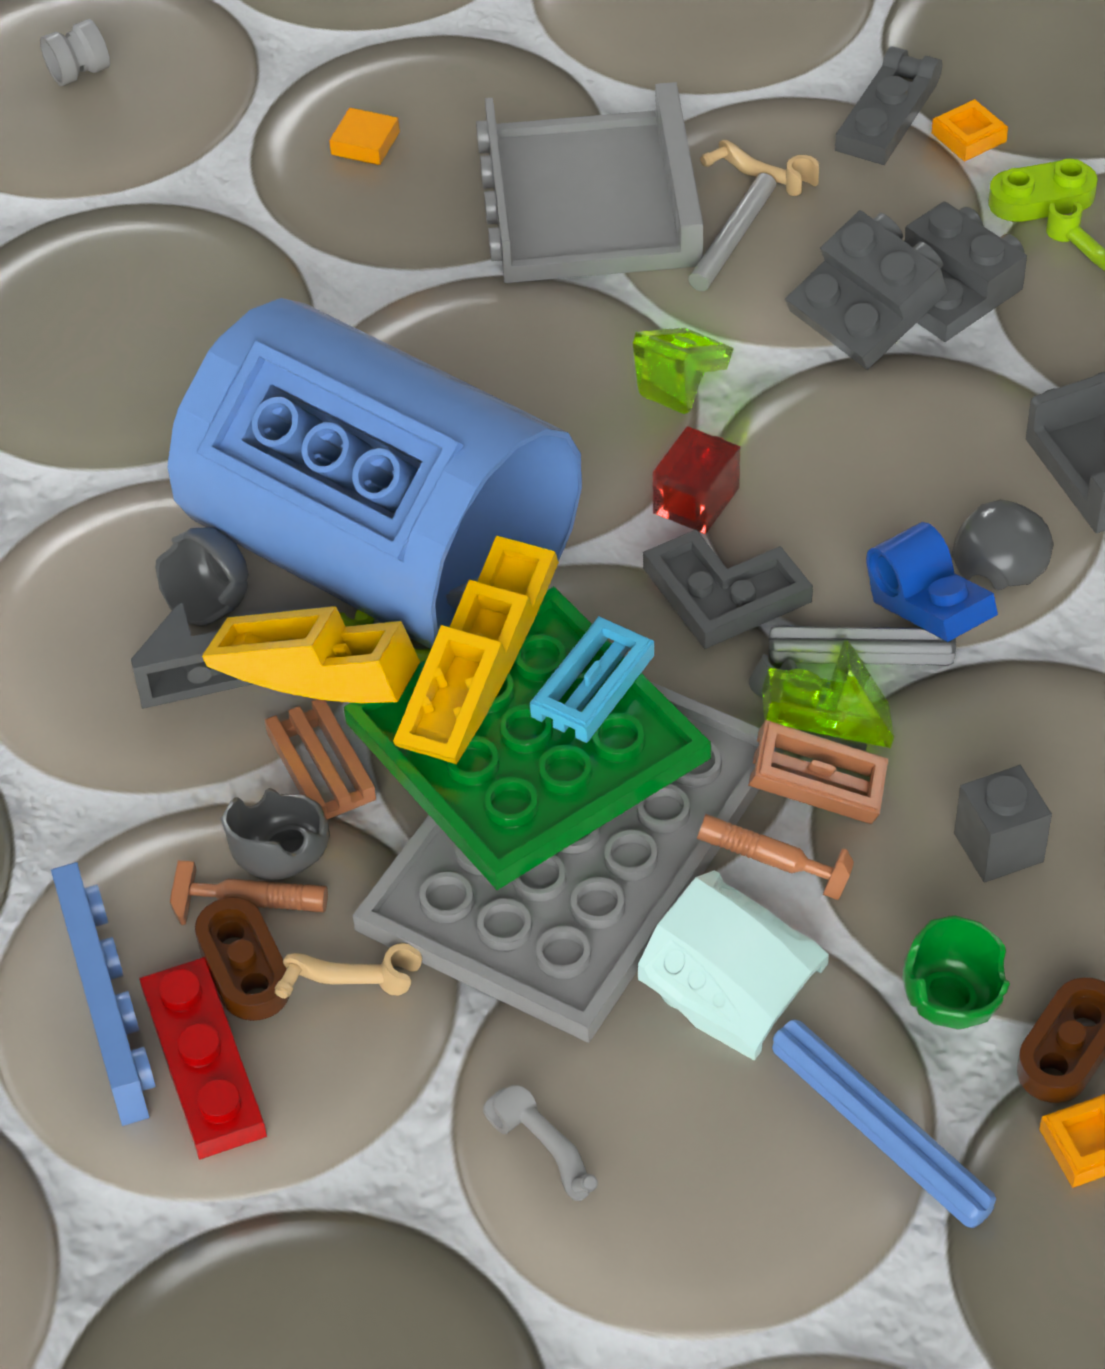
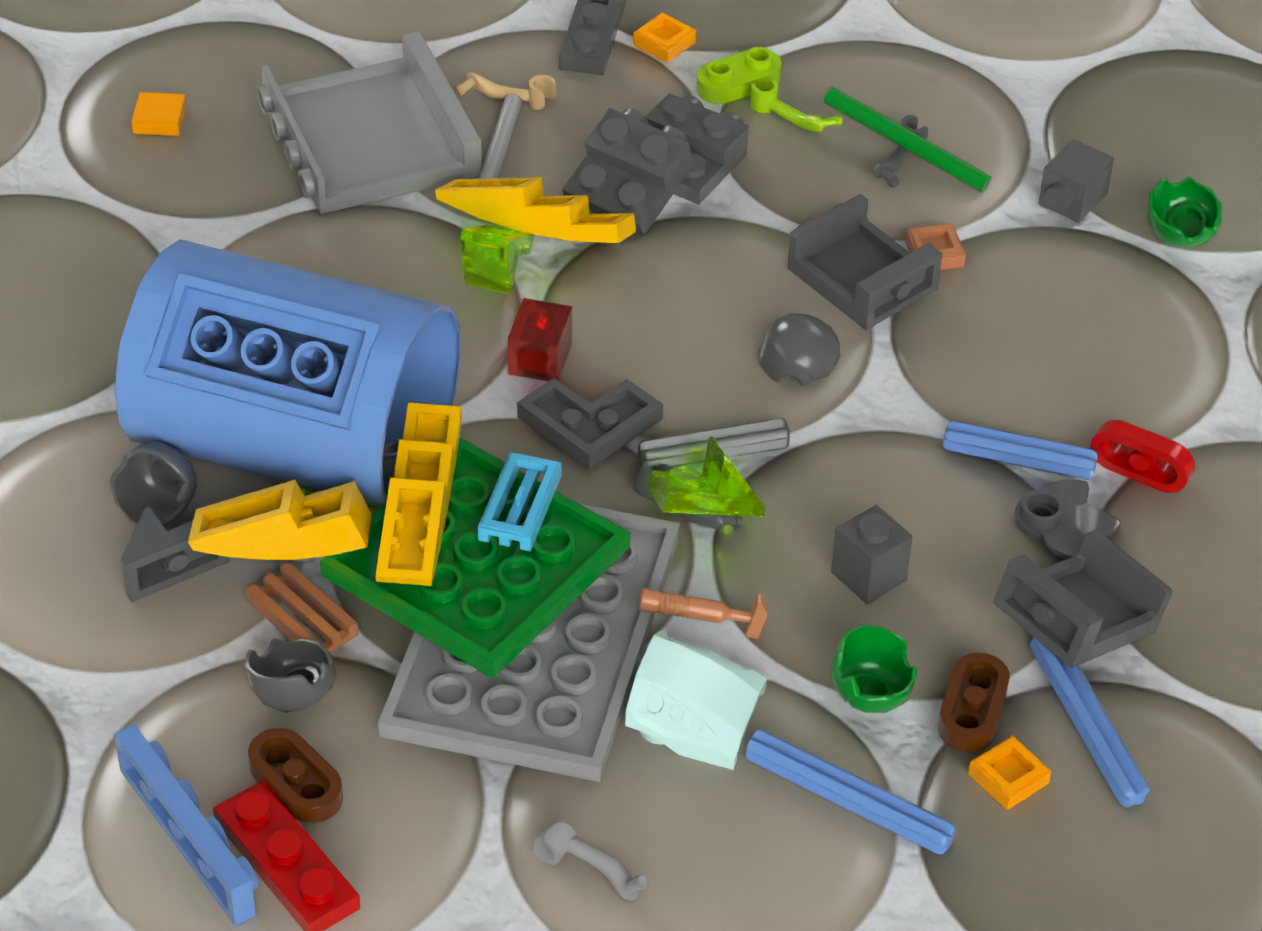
camera: 20 degrees left, 5 degrees down
(260, 893) = (301, 723): nougat piece -> none
(333, 973) = (423, 765): tan piece -> none
(731, 314) = (523, 207): none -> yellow slope
(817, 781) = (716, 550): nougat tile -> none
(918, 582) = (743, 386): blue plate -> none

